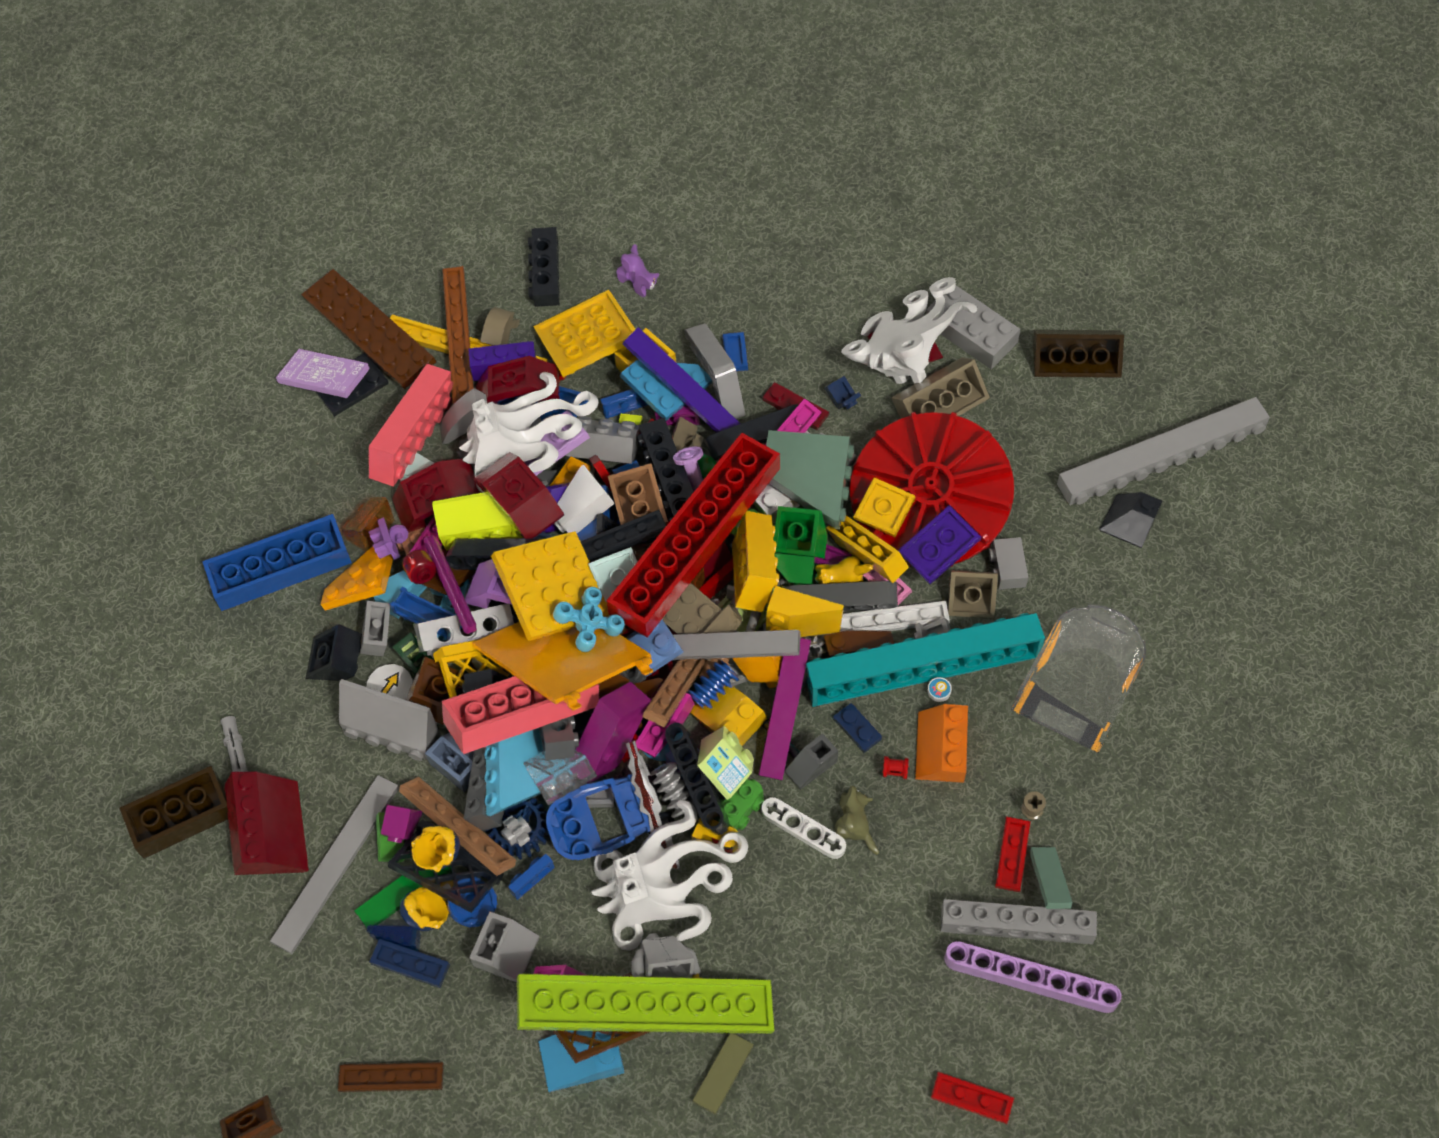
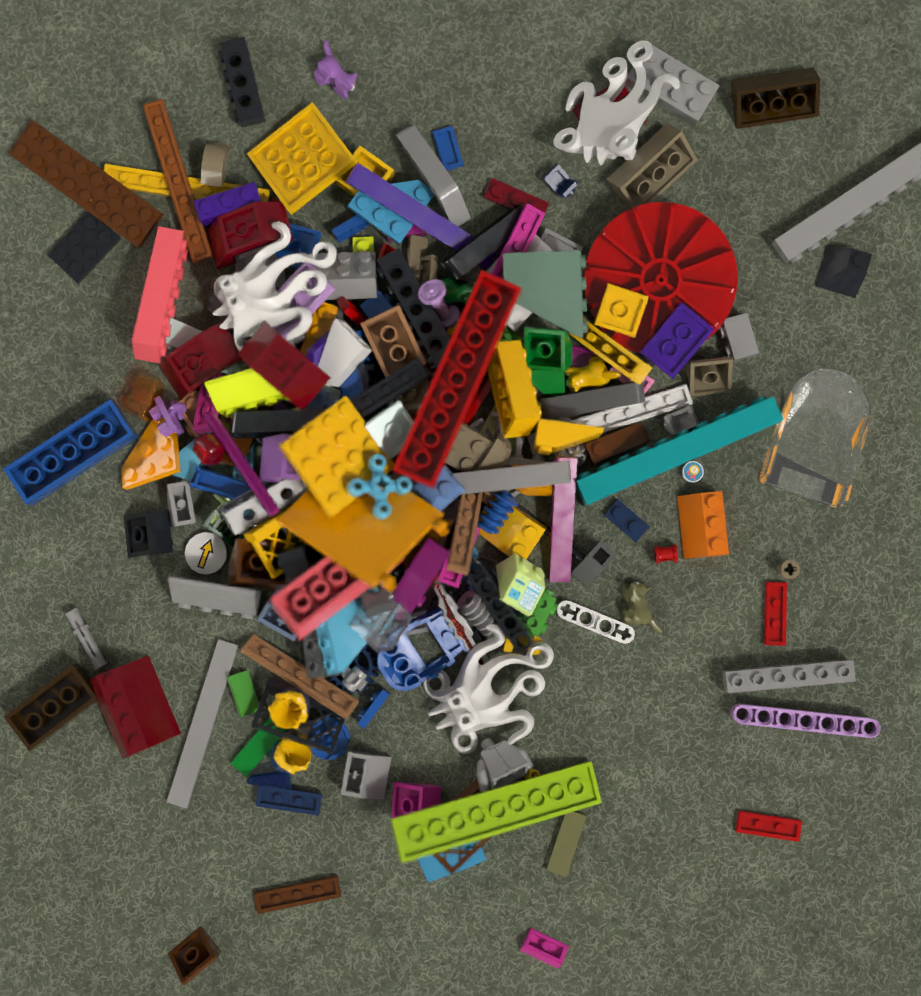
camera: 10 degrees left, 25 degrees up
(322, 373) = (56, 243): lavender tile -> none
(400, 823) = (252, 685): magenta slope -> none
(459, 416) = (206, 272): light grey slope -> none
(1051, 878) = (811, 634): sand green tile -> none

